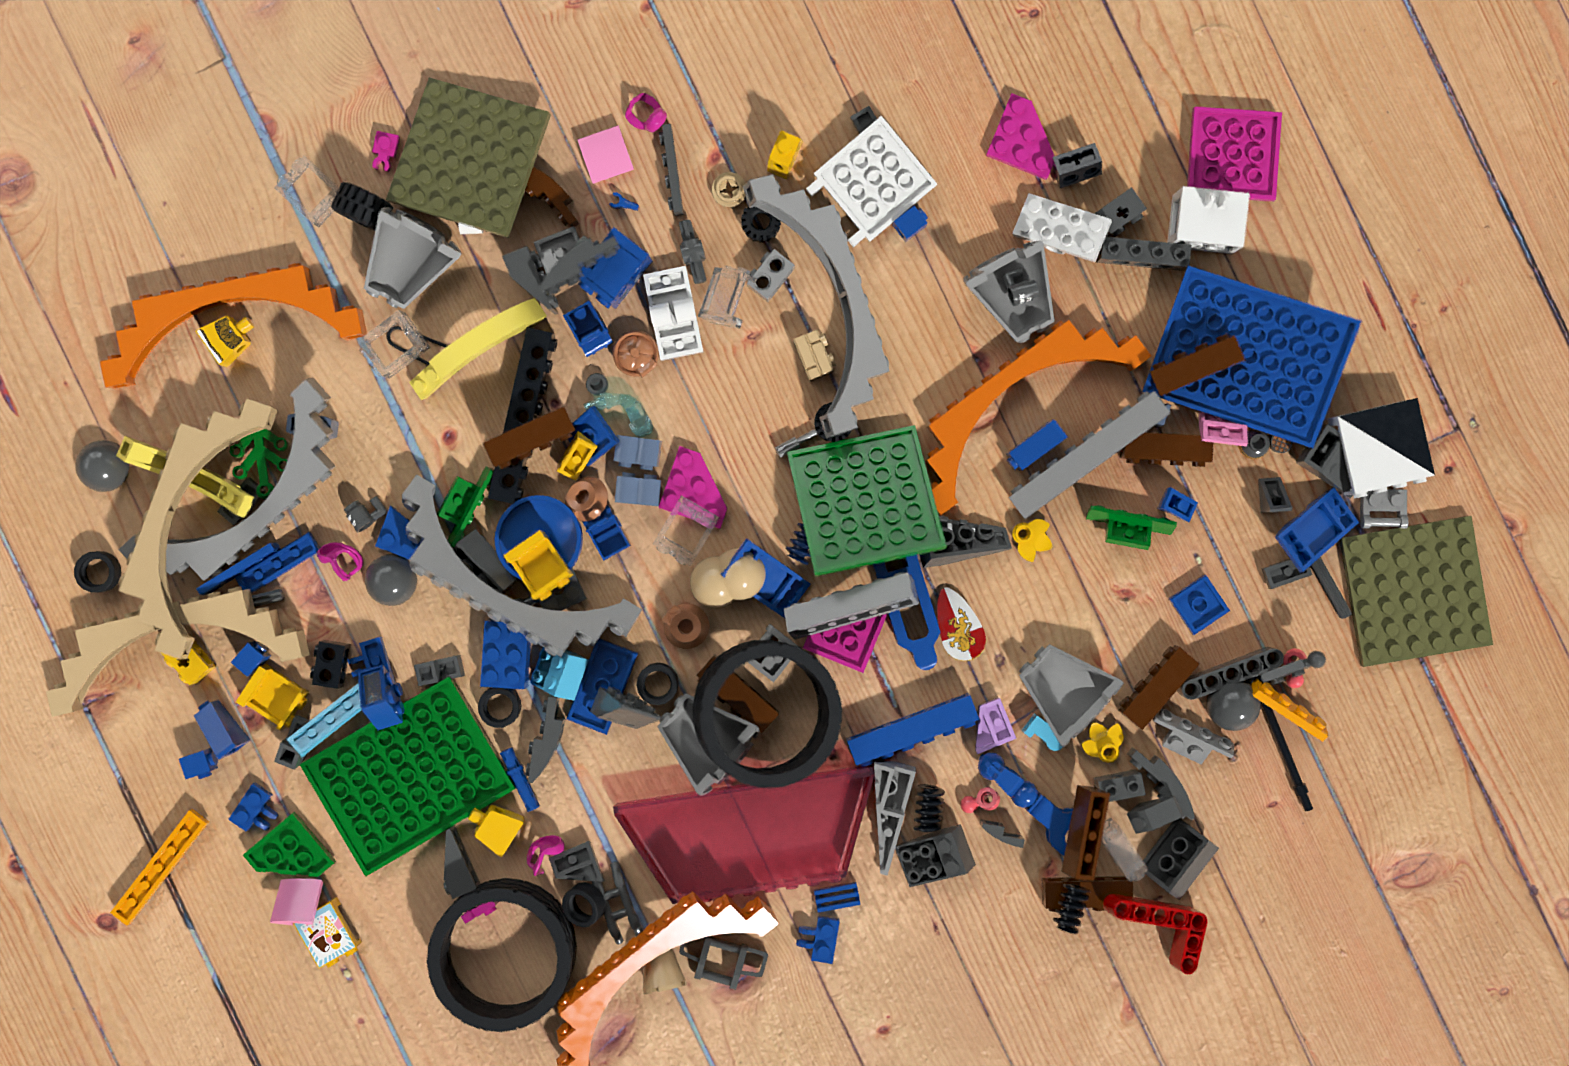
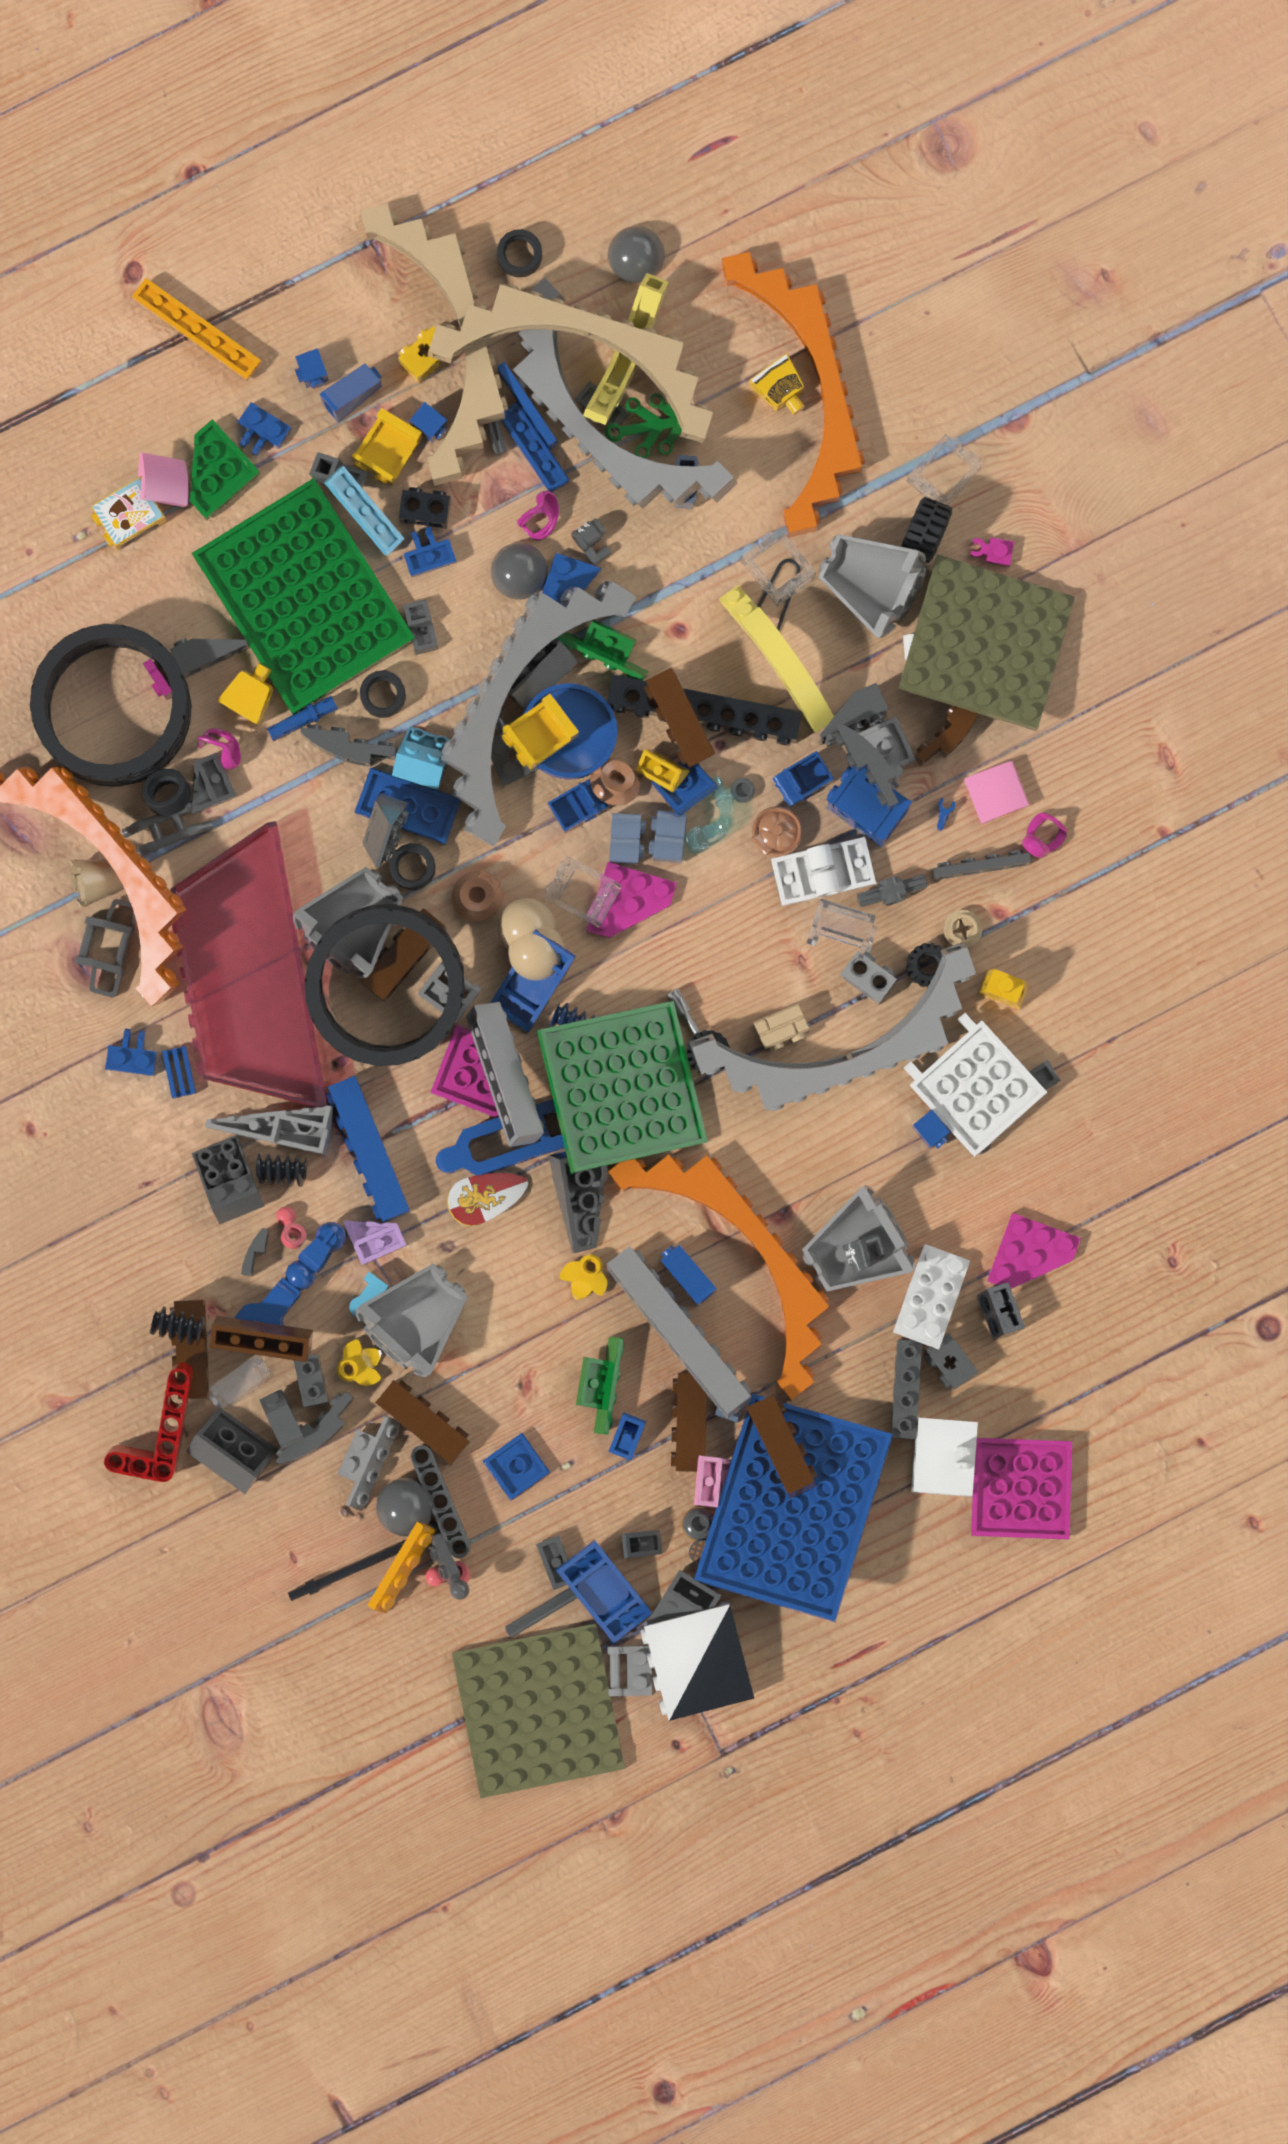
camera: 90 degrees right, 5 degrees down
(380, 697) = (391, 565): blue piece -> none
(504, 657) = (437, 698): blue piece -> none

